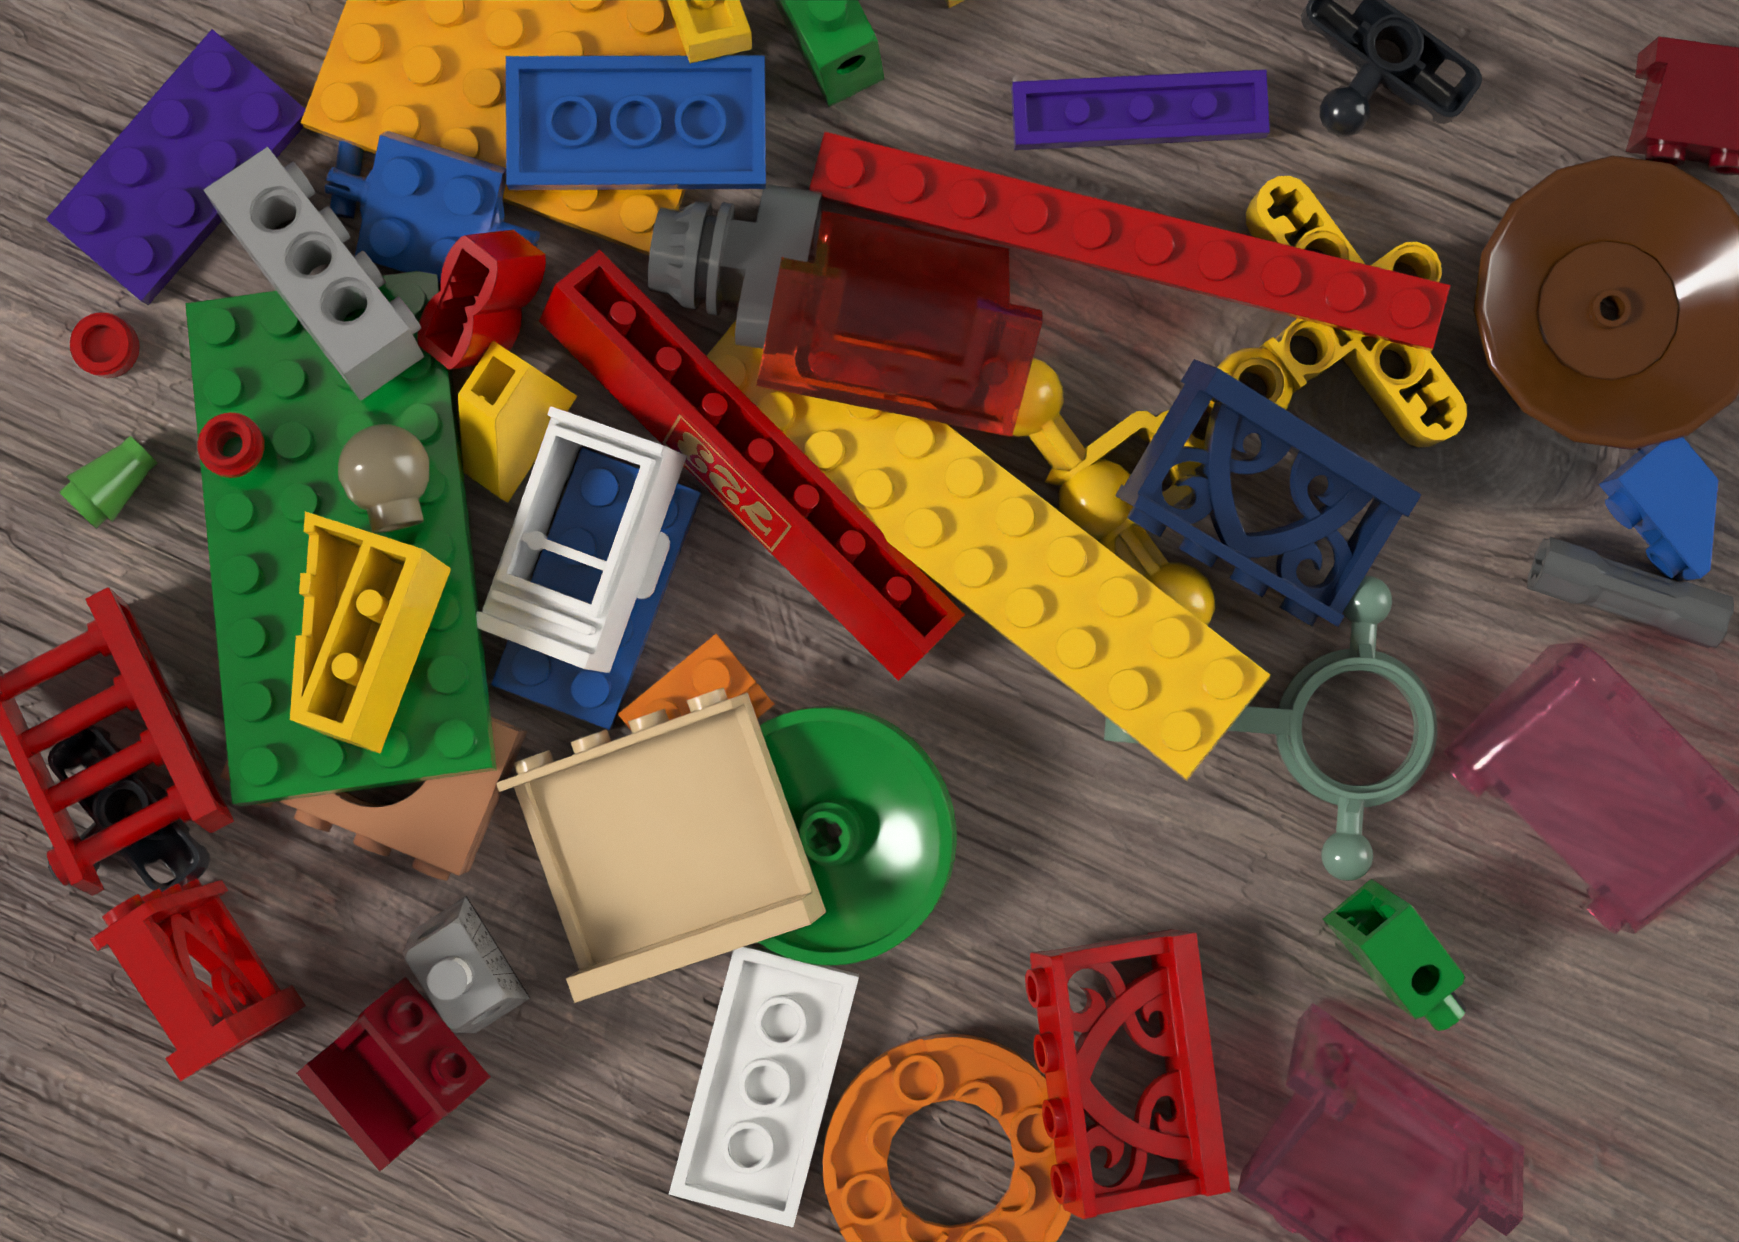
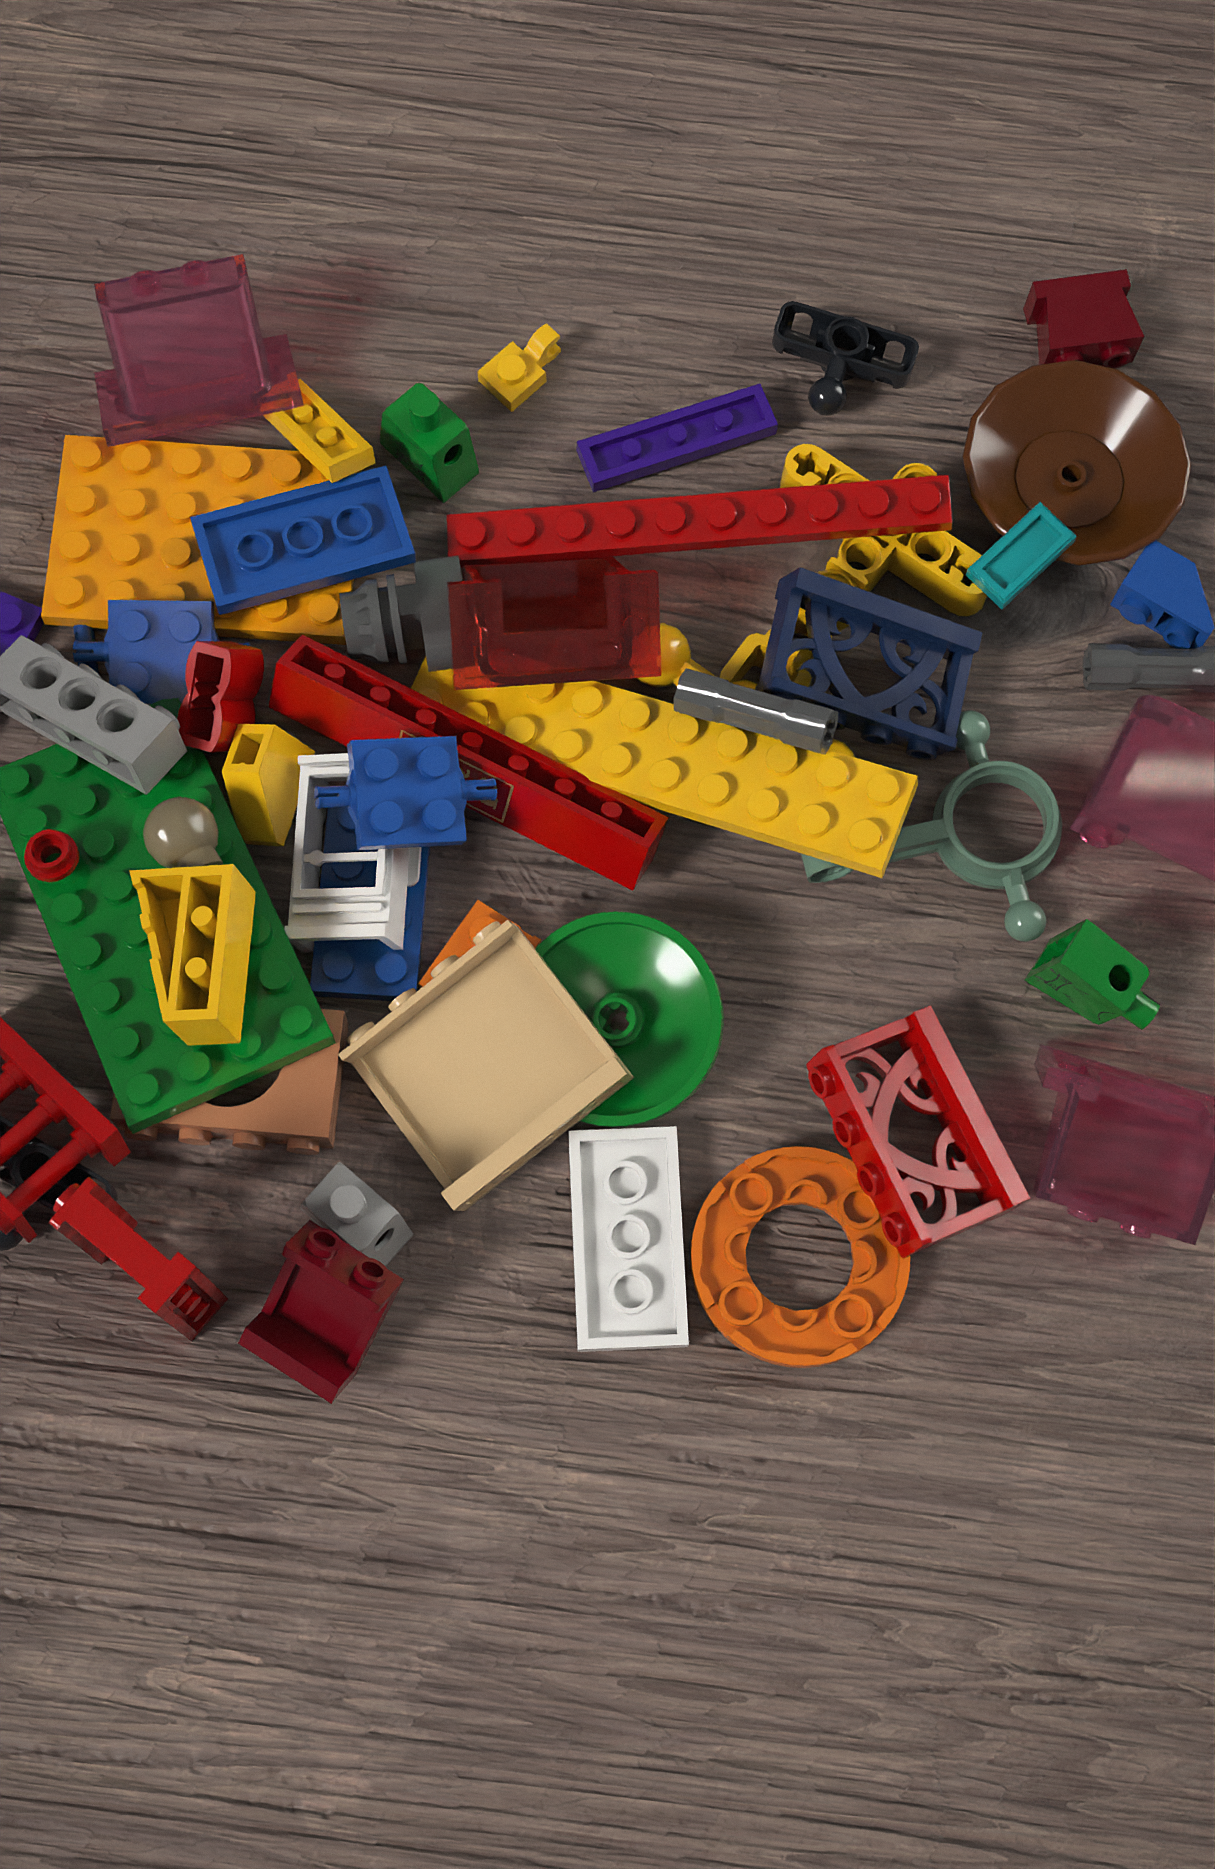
camera: 25 degrees left, 15 degrees down
(658, 505) = (406, 792): none -> blue plate
(1143, 558) = (752, 710): none -> dark grey axle
(1505, 411) = (1021, 555): none -> teal tile

